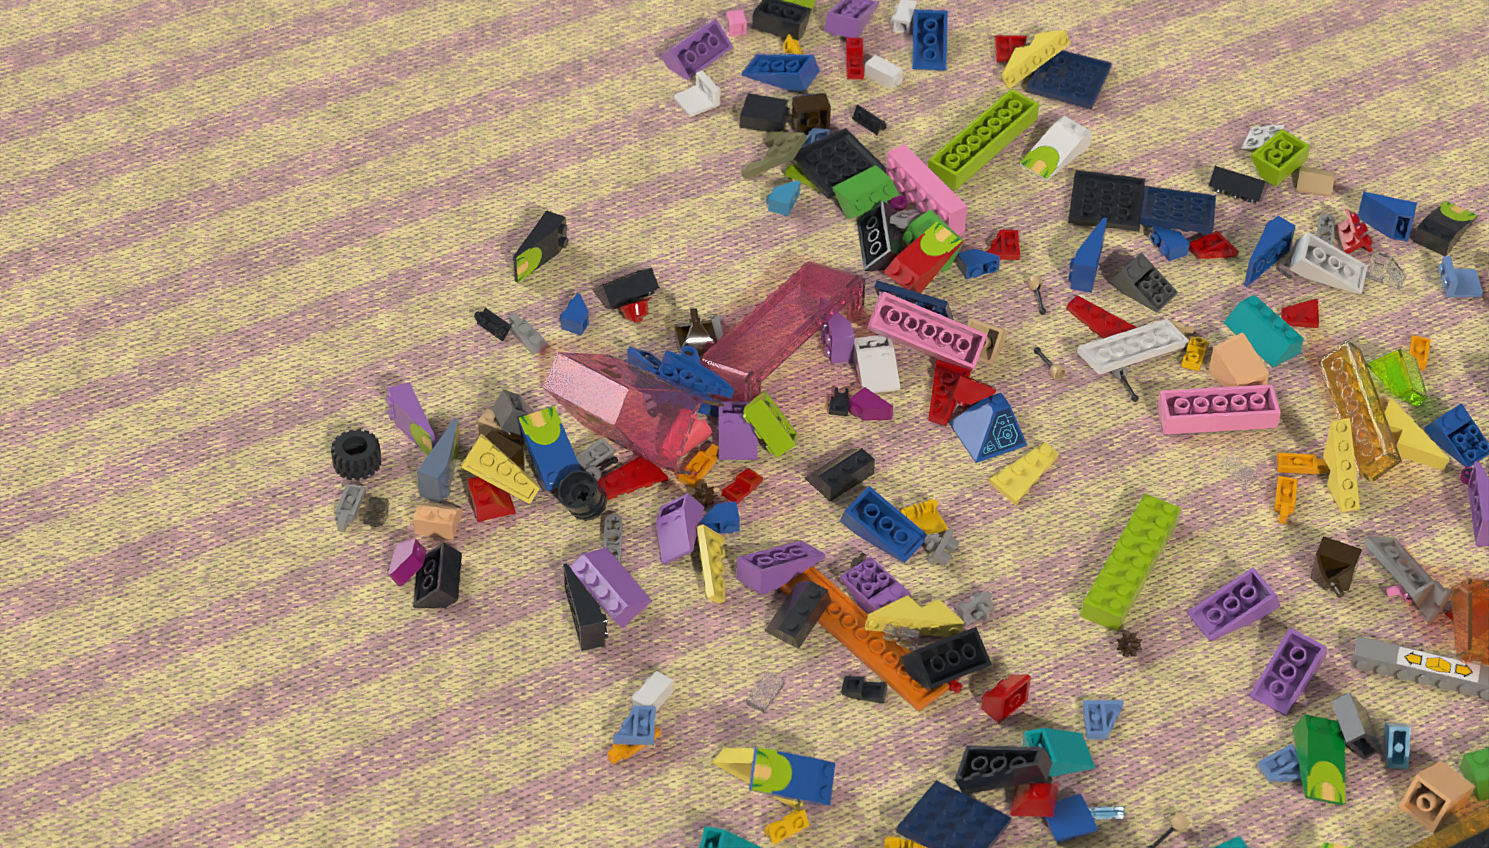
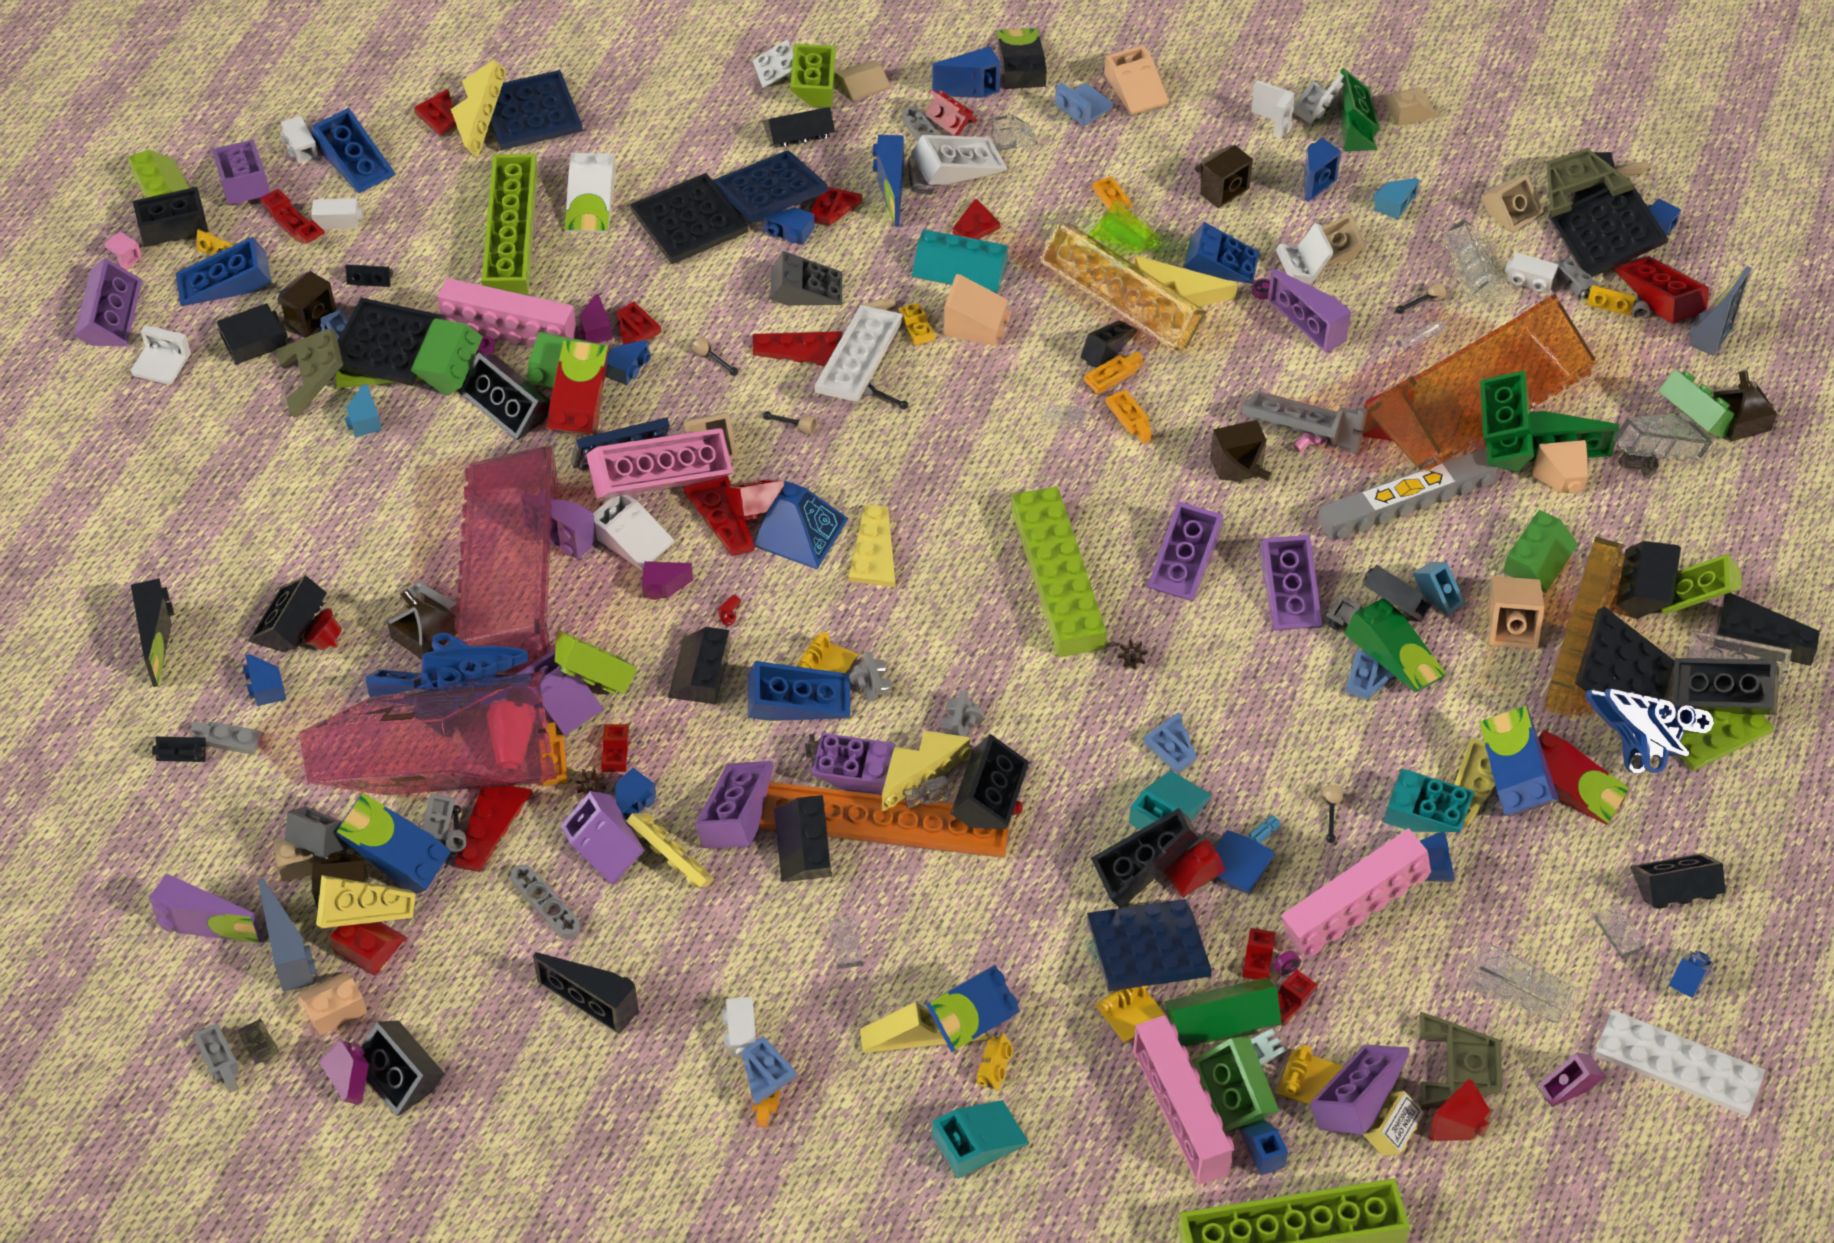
camera: 40 degrees left, 5 degrees up
(356, 465) = (177, 1011): black tyre -> none
(582, 495) = (469, 855): black wheel -> none
(611, 585) = (592, 942): medium lavender slope -> none
(840, 403) = (627, 596): black plate -> none
(857, 688) = (934, 873): black slope -> none
(891, 450) = (726, 611): none -> red arm
(904, 218) = (514, 357): light grey hinge -> none
(980, 228) = (594, 322): none -> magenta slope
(1006, 696) = (1073, 783): red slope -> none
(1087, 260) = (741, 295): blue slope -> none
(1218, 409) = (994, 366): bright pink brick -> none
(1307, 440) = (1106, 343): none -> black slope
(1309, 709) = (1341, 613): none -> bracket
(1341, 462) = (1157, 344): light yellow slope -> none

